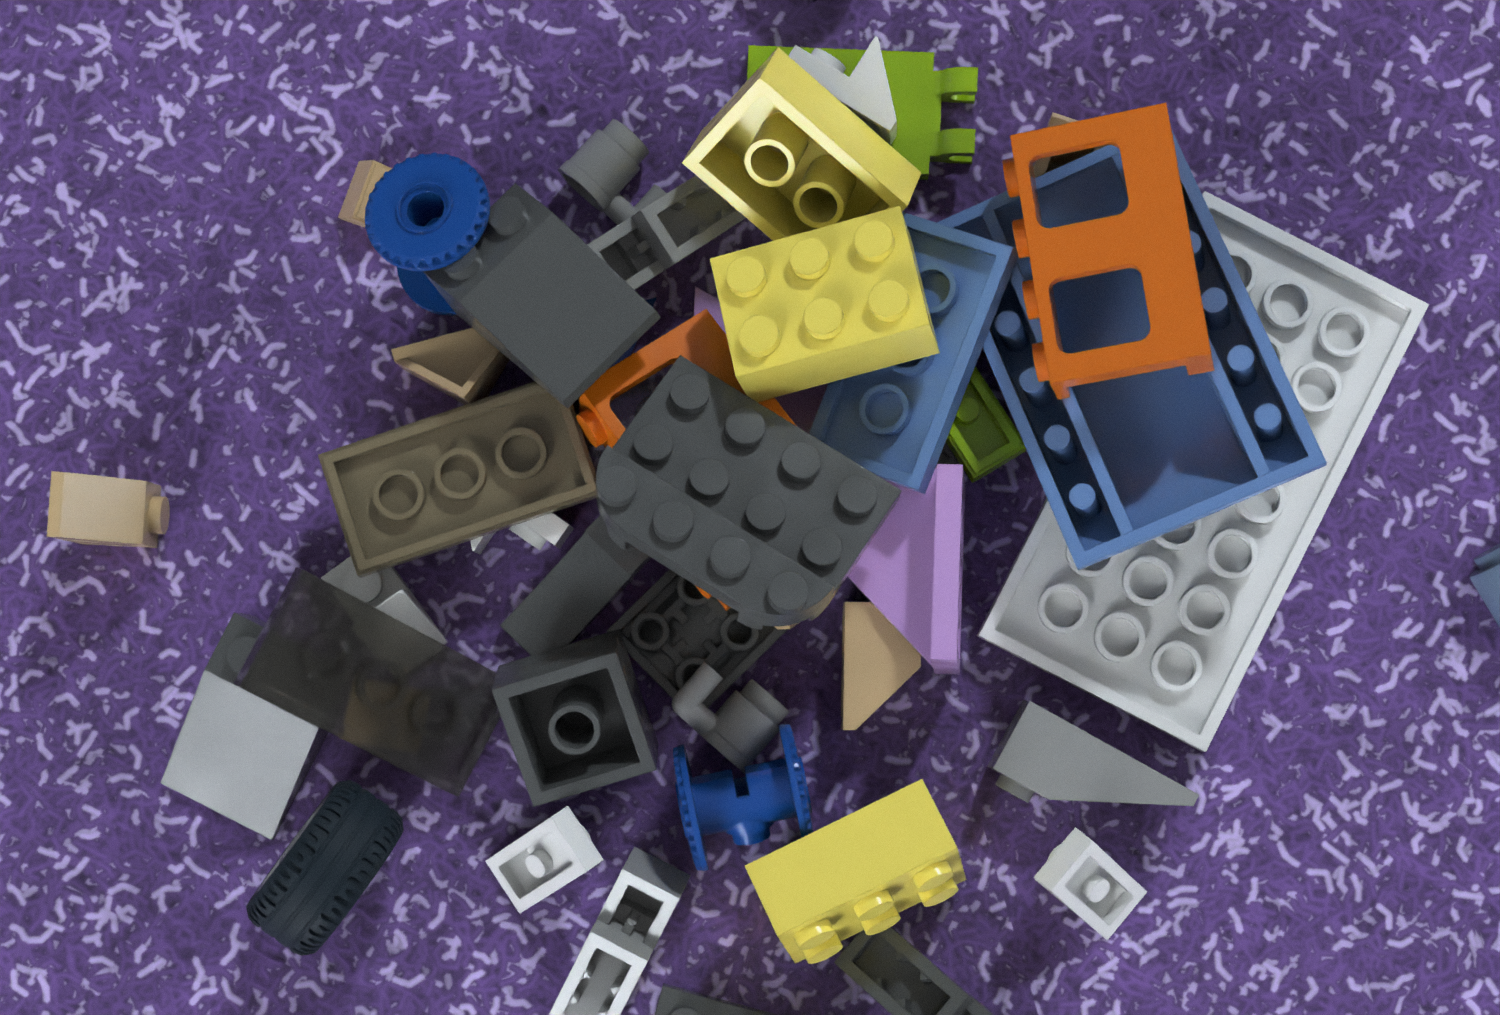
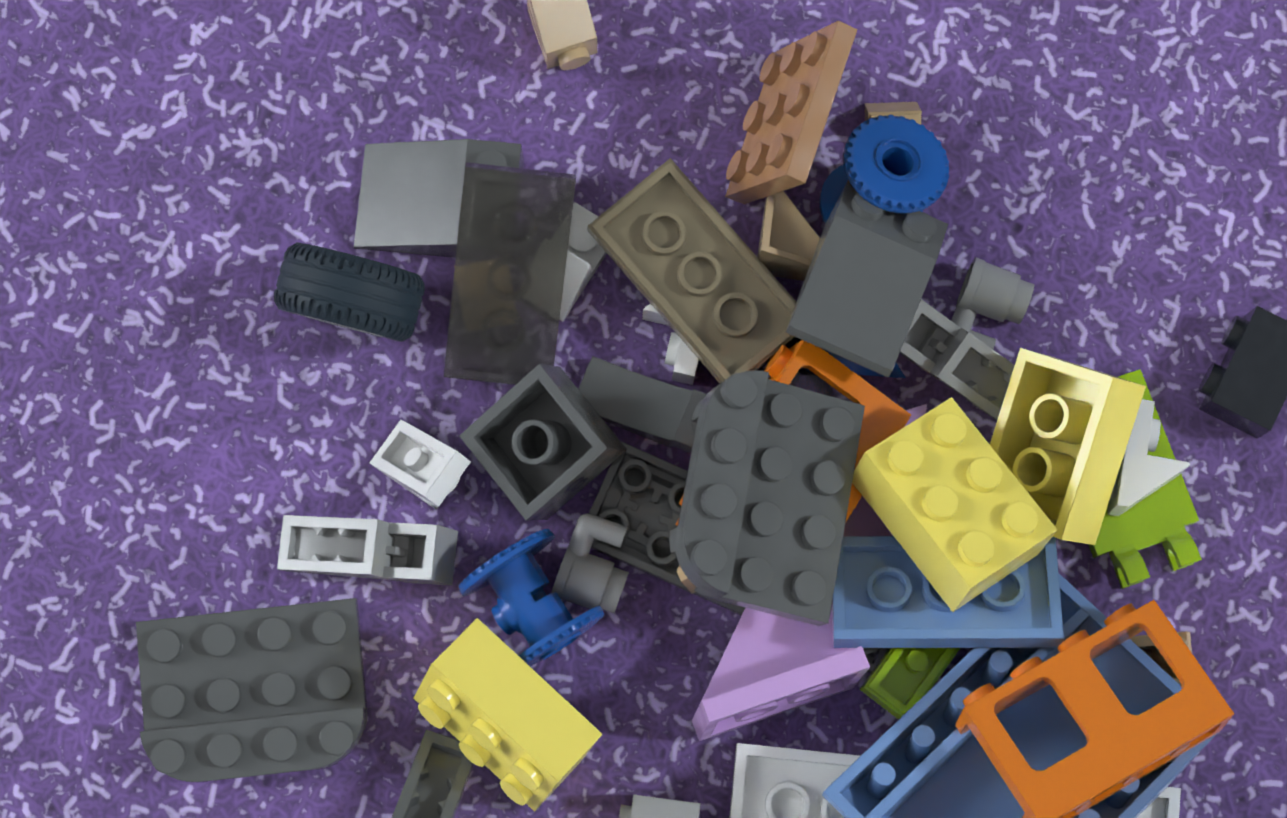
camera: 65 degrees right, 5 degrees down
(322, 304) = (789, 114): none -> medium nougat plate
(873, 662) = (680, 665): tan slope -> none

